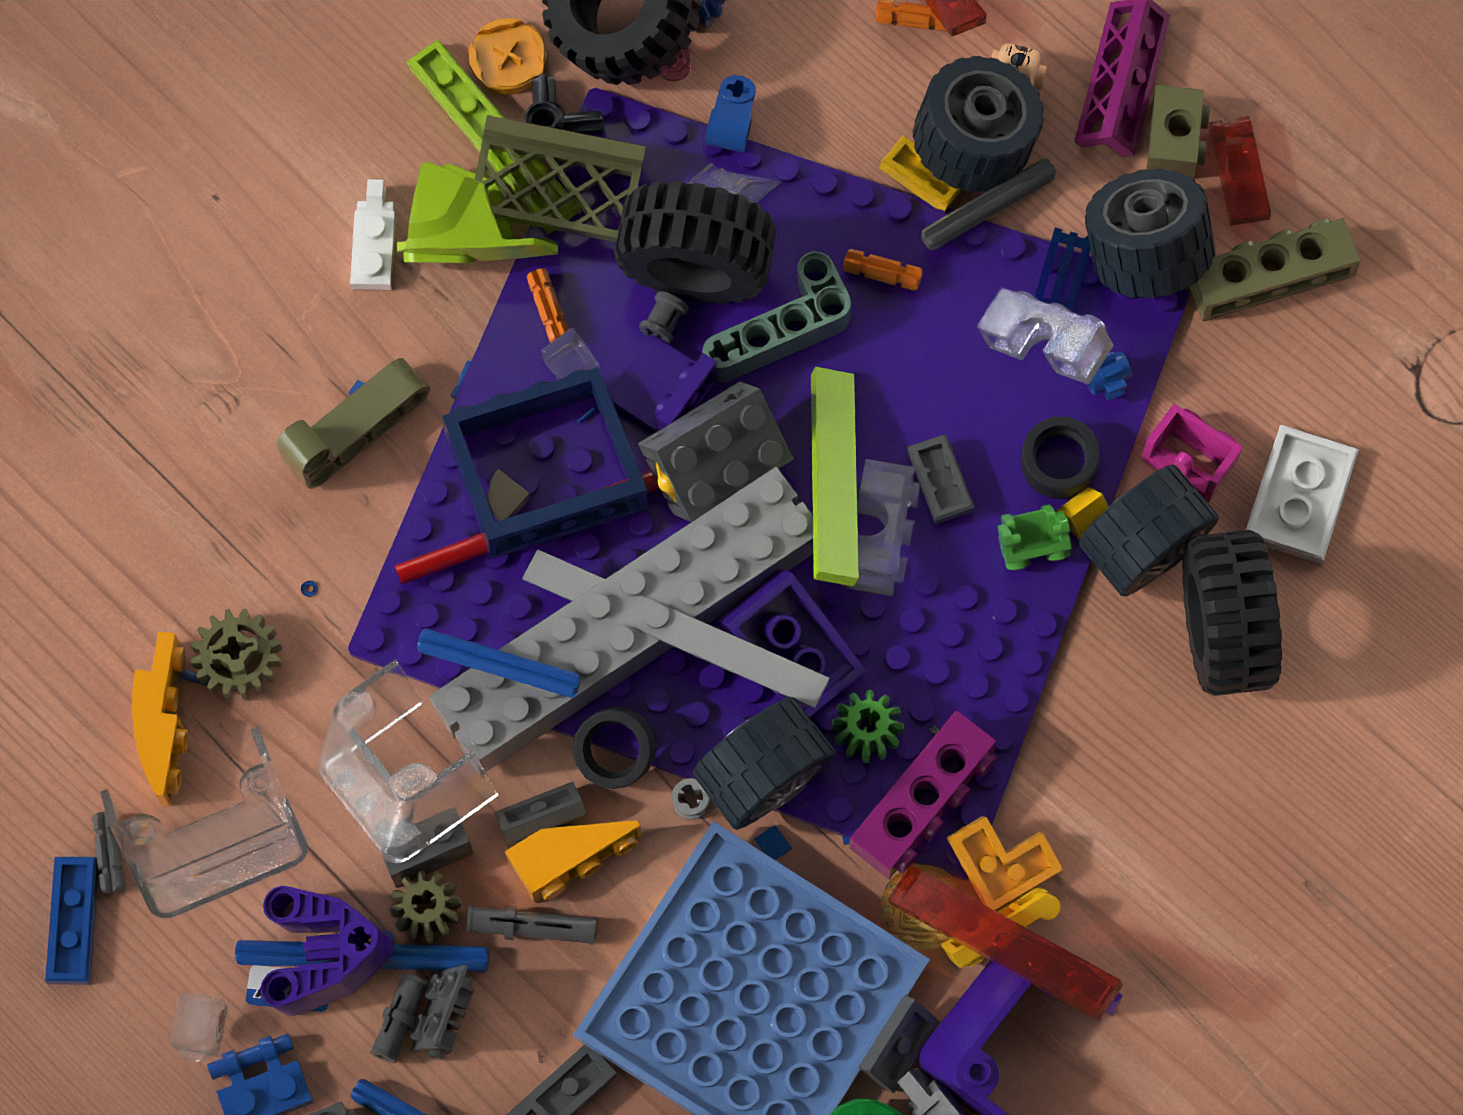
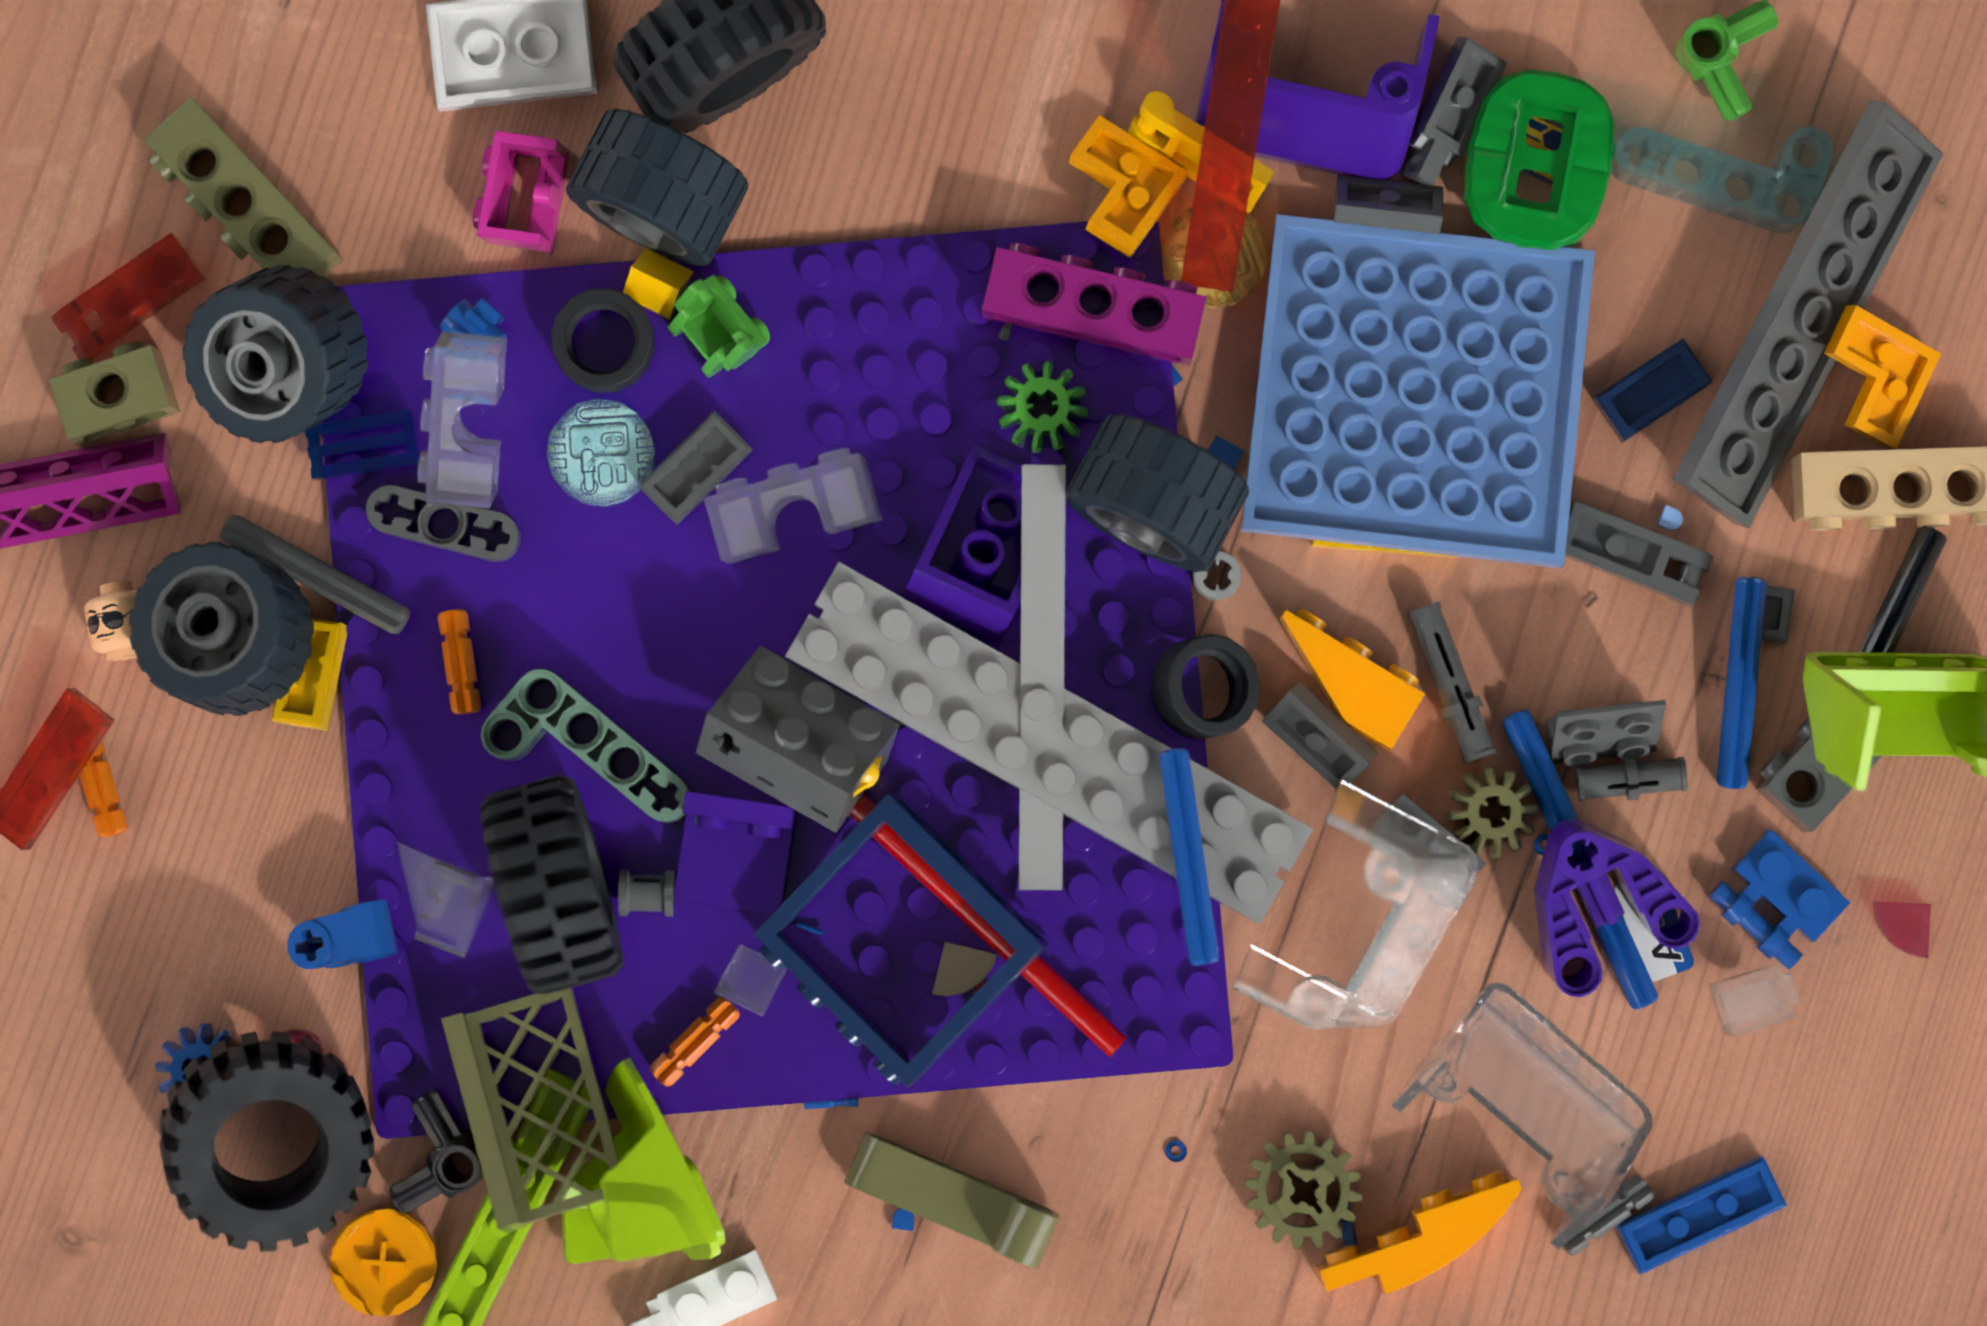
camera: 115 degrees left, 15 degrees up
(834, 477) = (761, 585): lime tile -> none
(956, 315) = (401, 526): none -> dark grey beam
(983, 424) = (600, 452): none -> clear light blue tile

